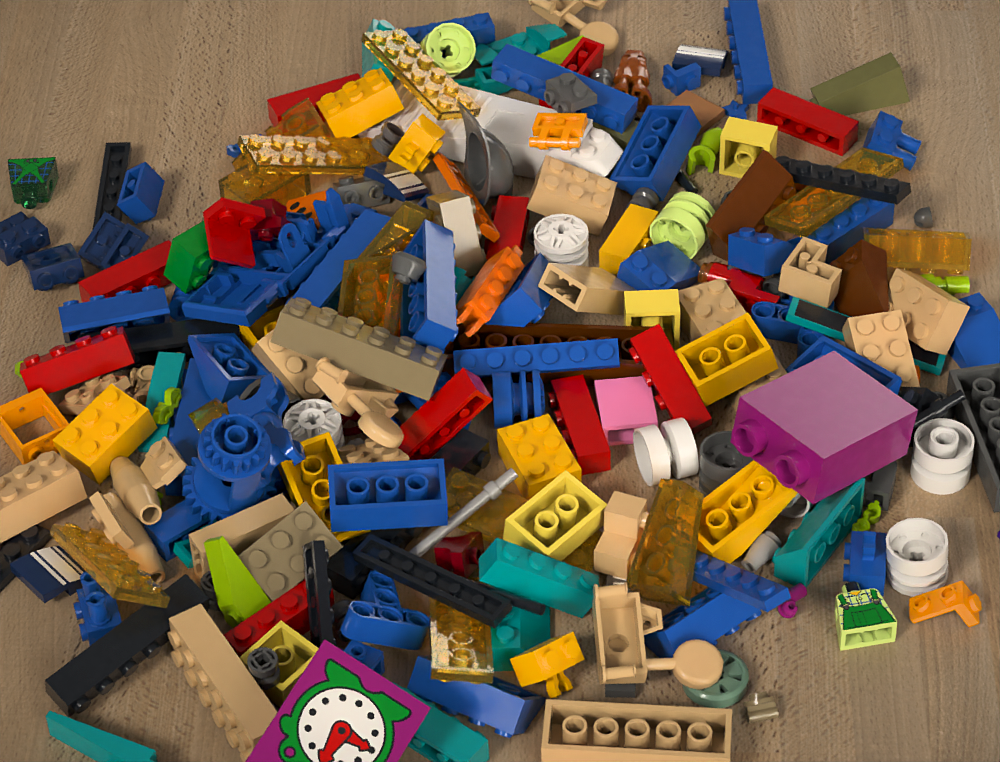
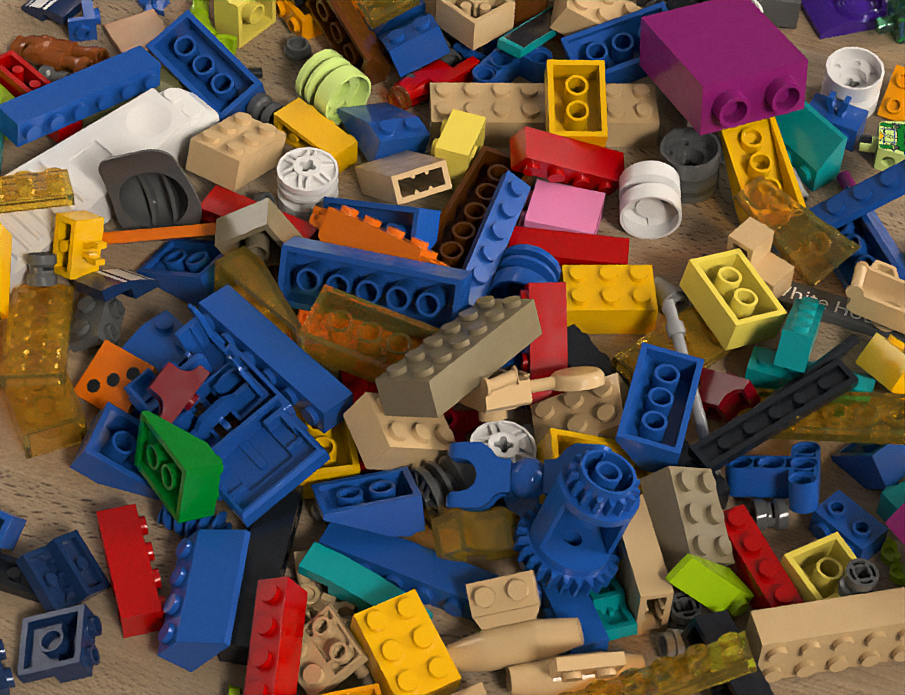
camera: 75 degrees left, 5 degrees up
(165, 410) = (390, 577): lime piece -> none
(229, 233) = (187, 421): red bracket -> none
(318, 591) = (764, 511): black plate -> none
(407, 267) = (361, 277): dark grey cone -> none
(558, 130) = (155, 109): light orange plate -> none
(568, 94) = (115, 89): dark grey bracket -> none

